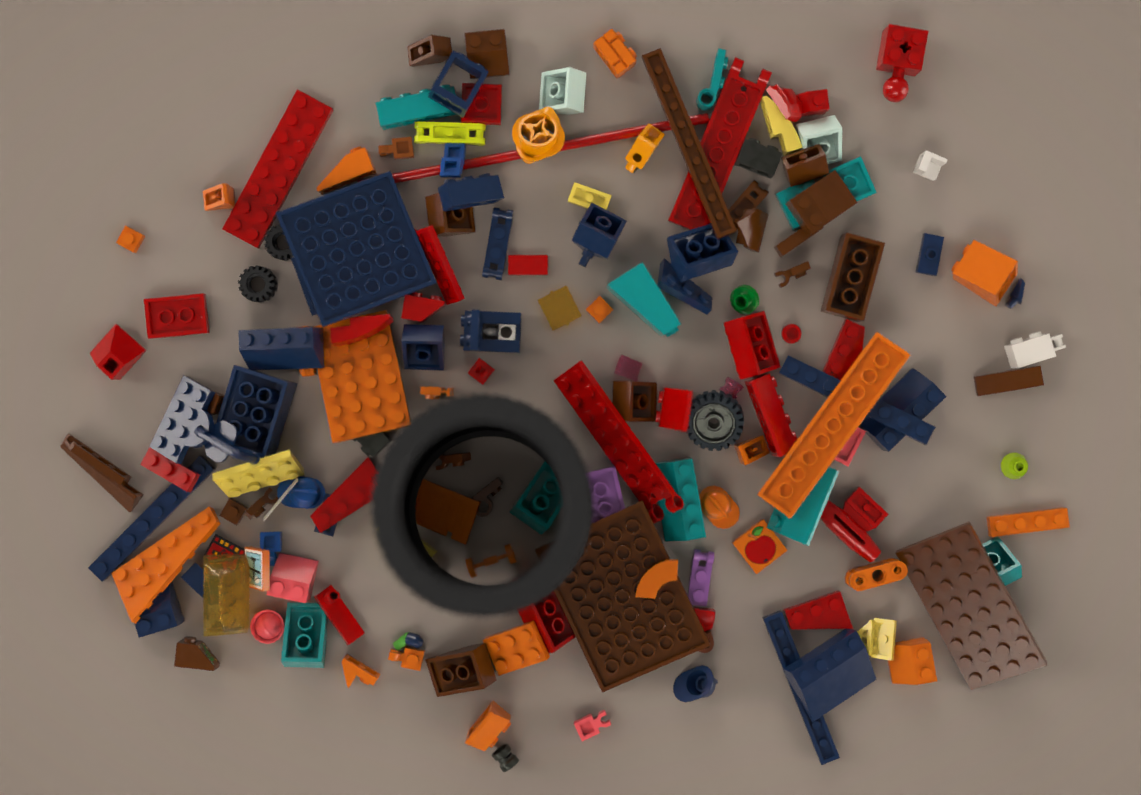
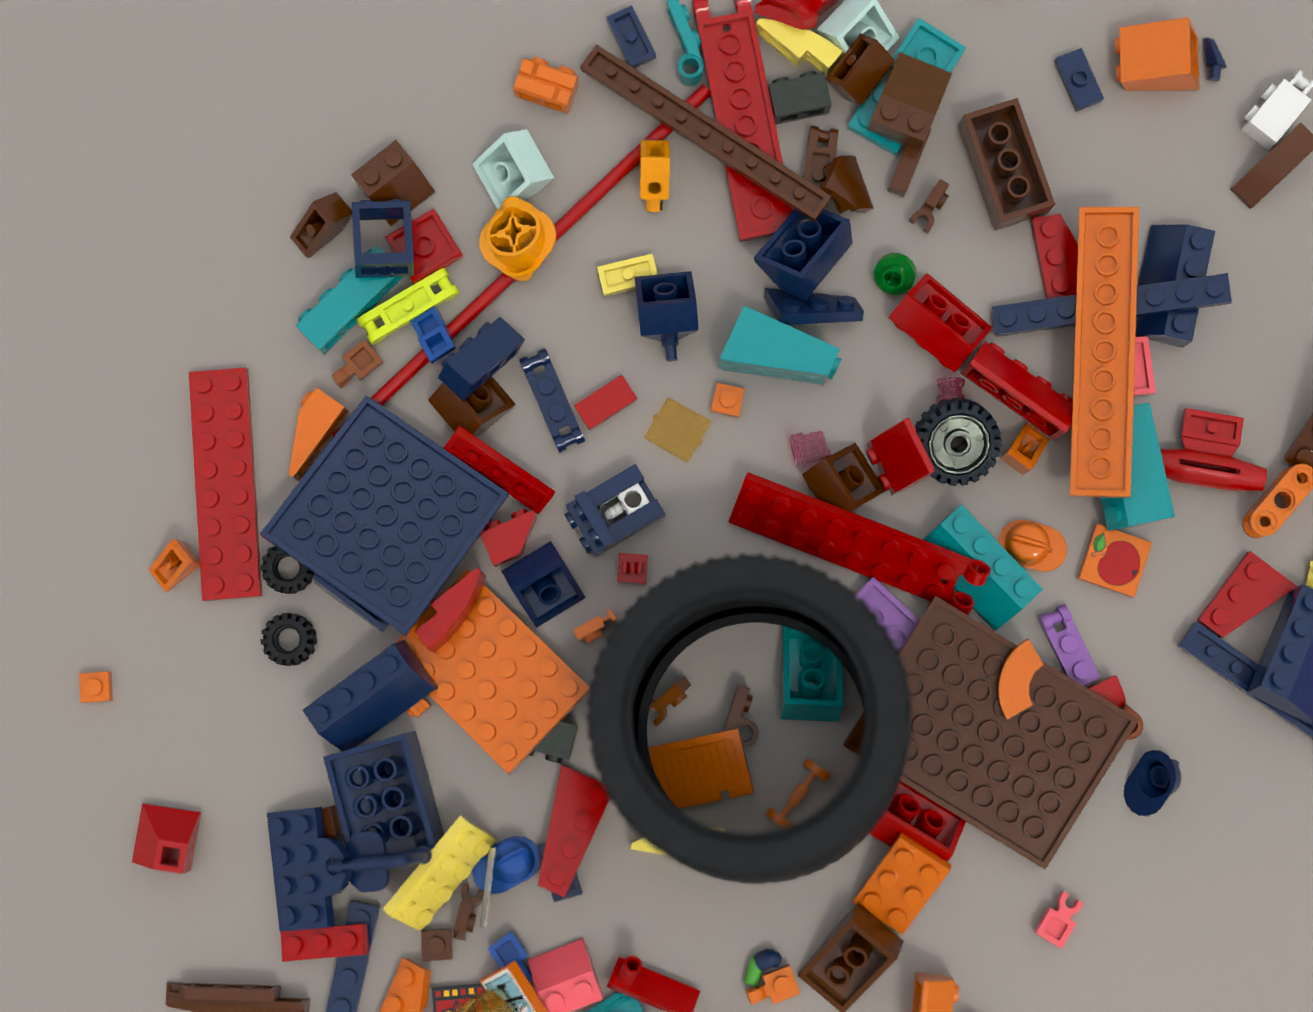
camera: 30 degrees left, 5 degrees down
(176, 316) = (212, 744): red plate -> none
(684, 57) = (631, 37): none -> dark blue plate
(791, 333) = (978, 278): red plate -> none

